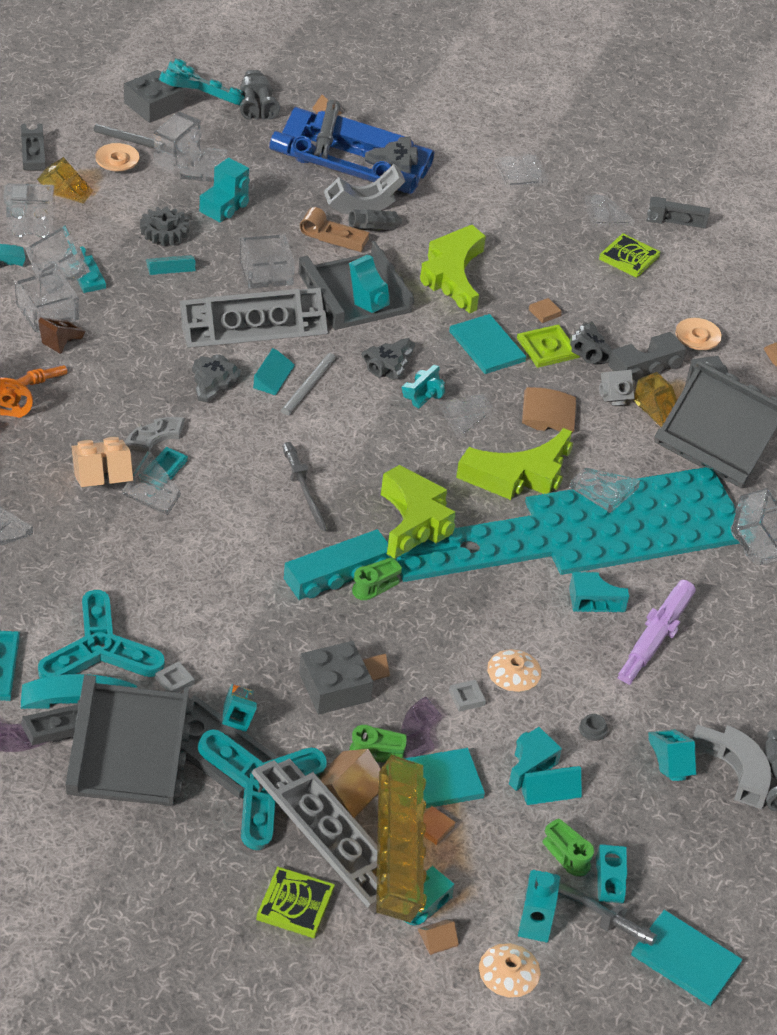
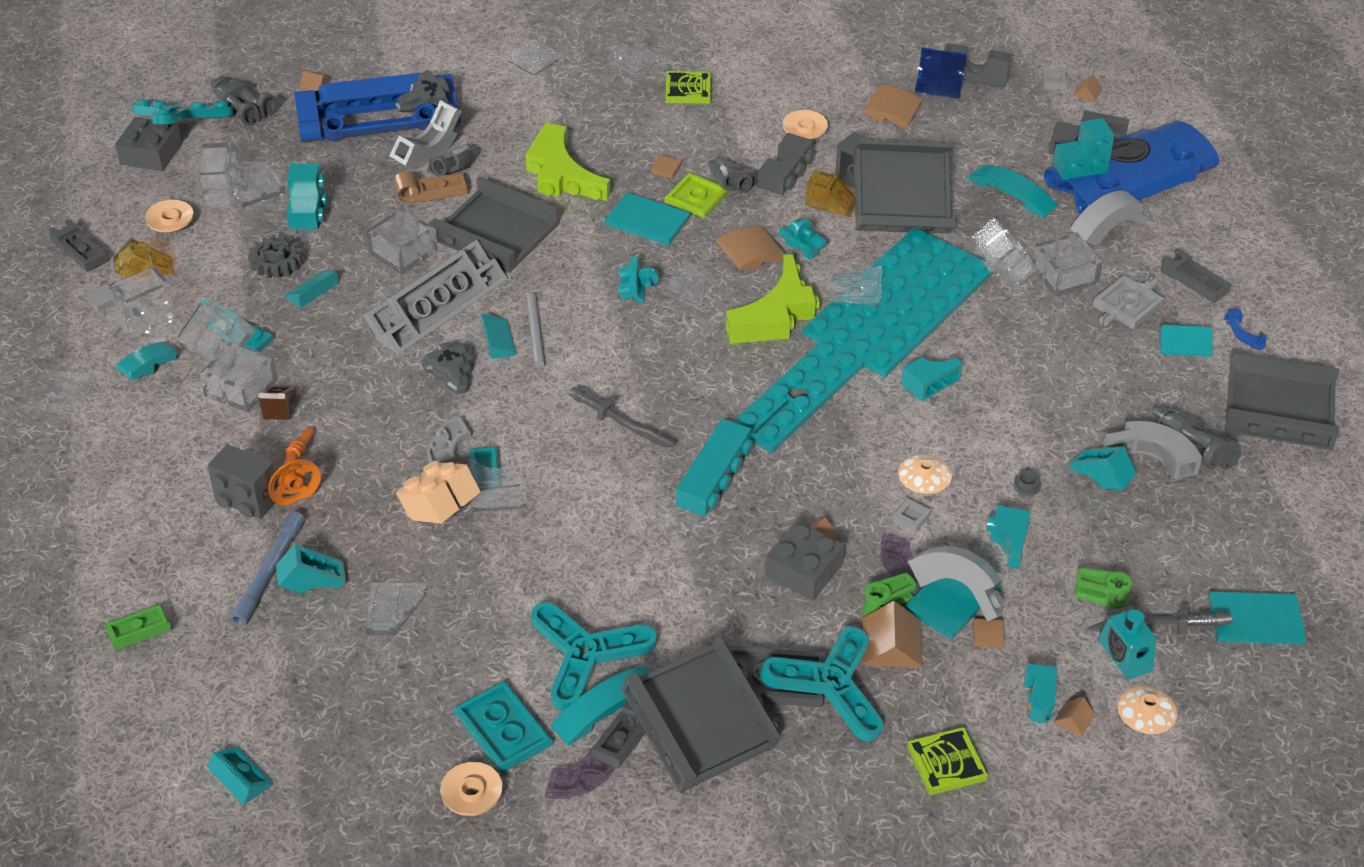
camera: 30 degrees left, 0 degrees up
(149, 142) = (159, 192): dark grey bar -> none
(175, 678) = (673, 641): light grey tile -> none
(240, 705) = (755, 632): teal leg -> none
(325, 137) = (346, 106): dark grey pin -> none
(325, 825) = (930, 686): light grey slope -> none
(368, 287) = (514, 219): teal arch -> none
(376, 578) = (754, 462): bright green piece -> none
(389, 358) = (582, 273): dark grey rock -> none
(401, 840) = (991, 656): clear yellow brick -> none
(421, 507) = (737, 382): lime arch -> none
(452, 762) = (962, 566): none -> light grey arch
(552, 785) = (1044, 547): teal slope -> none
(598, 425) = (801, 235): none -> teal hips
(611, 873) = (1152, 588): teal leg -> none
(617, 386) = (788, 199): light grey brick -> none
(660, 624) = (1002, 373): lavender piece -> none
(677, 213) = (694, 33): dark grey plate -> none

